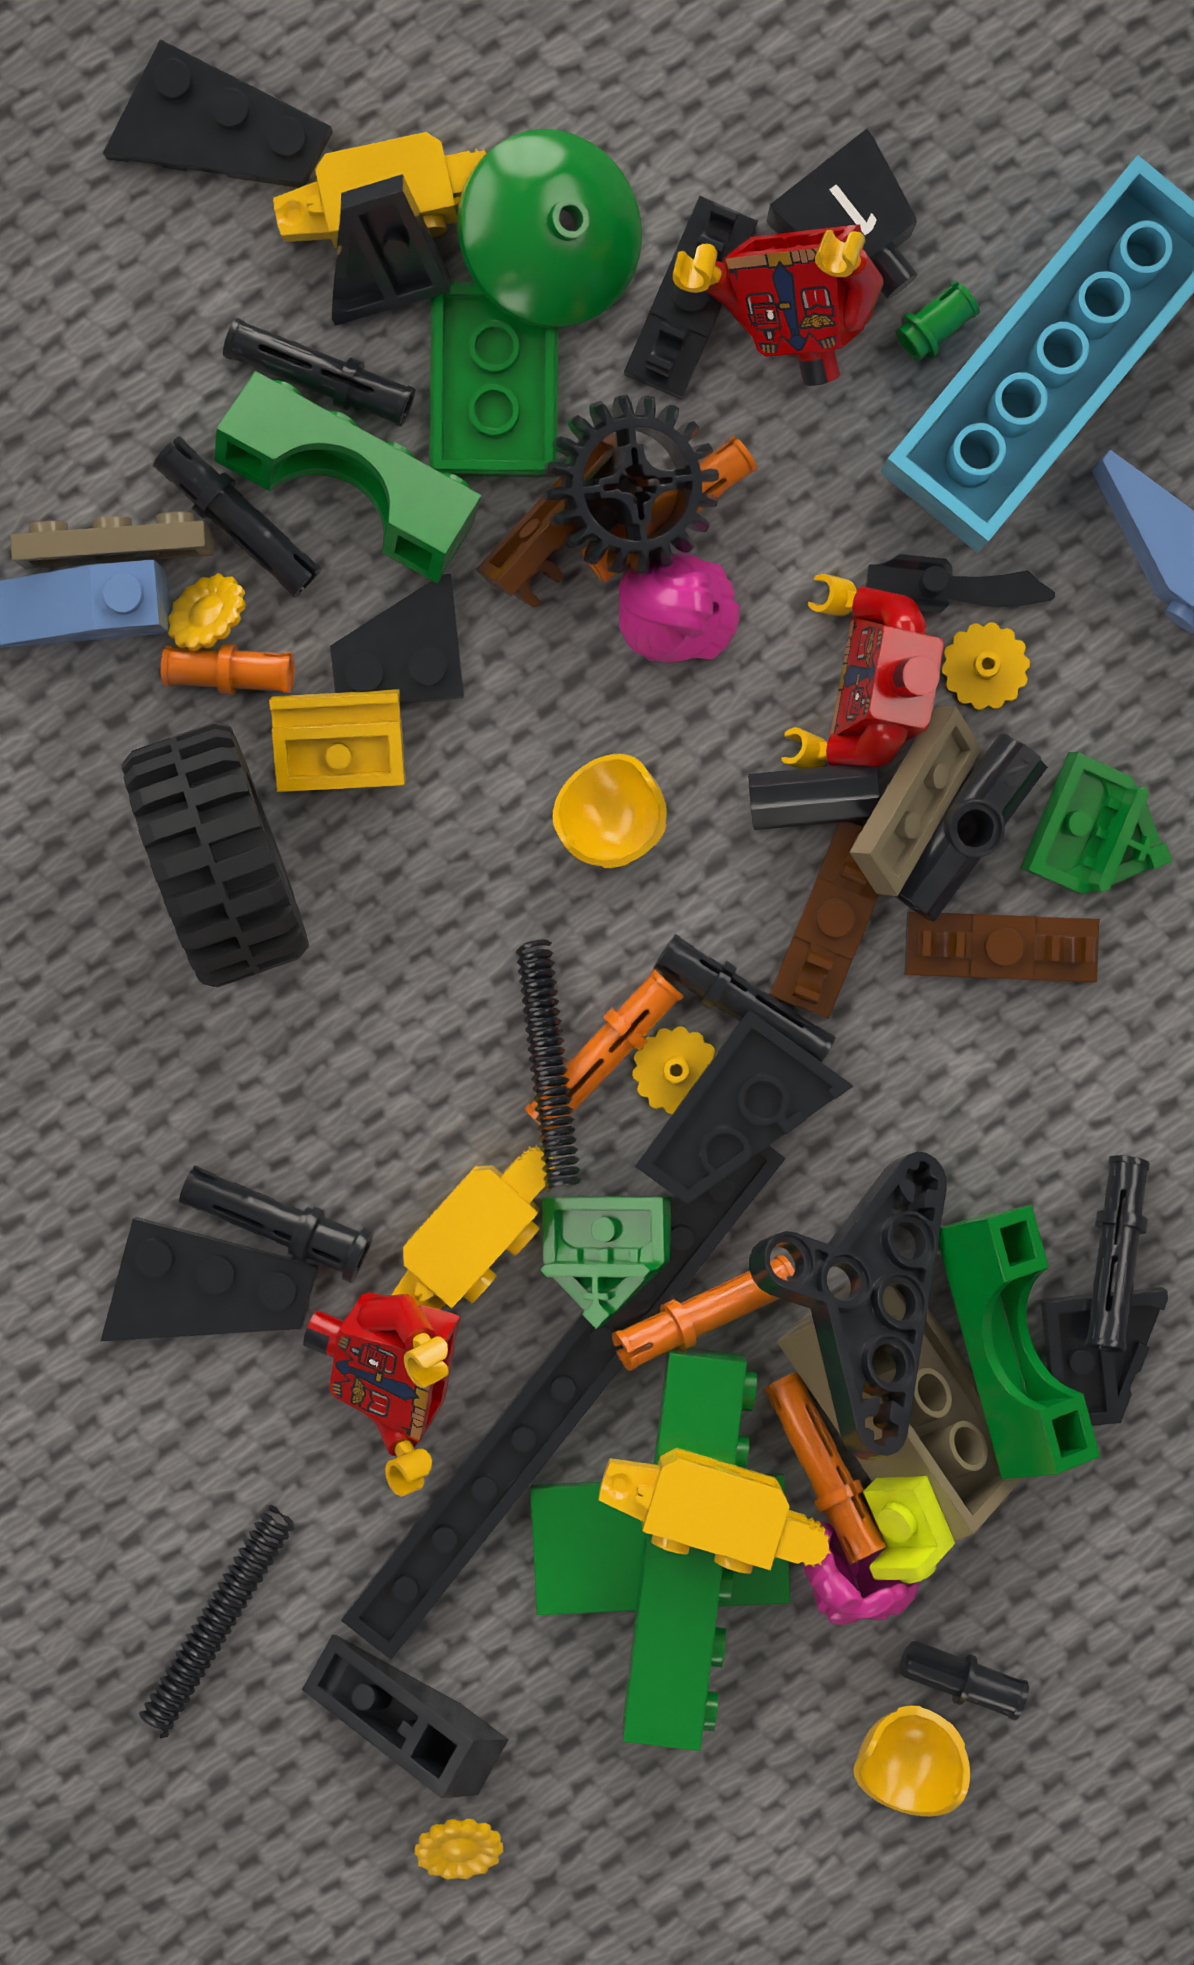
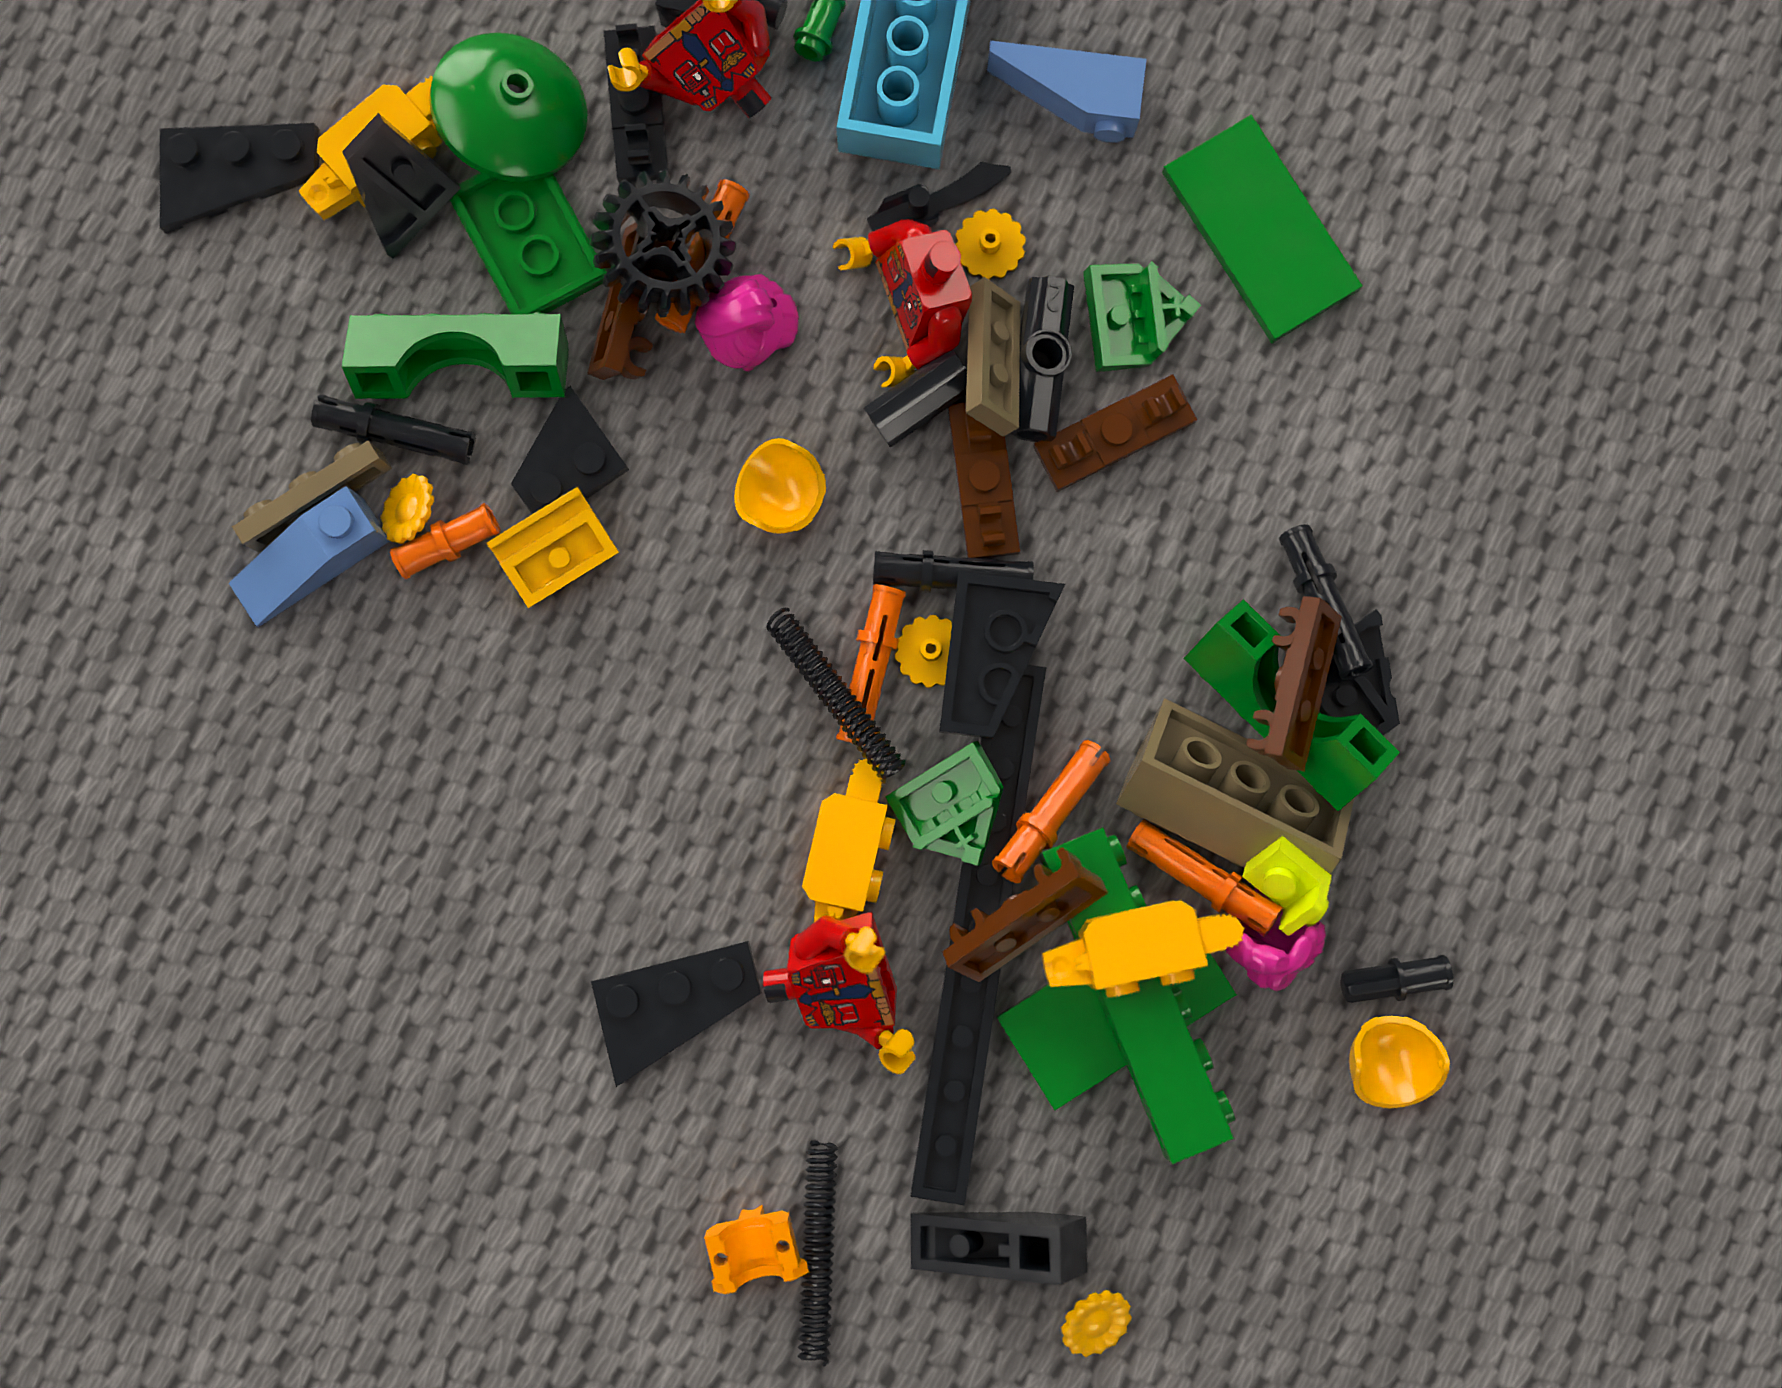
camera: 25 degrees left, 5 degrees down
(152, 1583) = (753, 1249): none -> light orange piece
(214, 855) = (504, 666): black tyre -> none
(303, 1232) = (723, 920): black pin -> none
(389, 398) = (418, 293): black pin -> none
(611, 1410) = (1023, 918): none -> reddish brown plate
(856, 1327) = (1168, 752): black beam -> none
(1035, 1330) = (1299, 683): none -> reddish brown plate

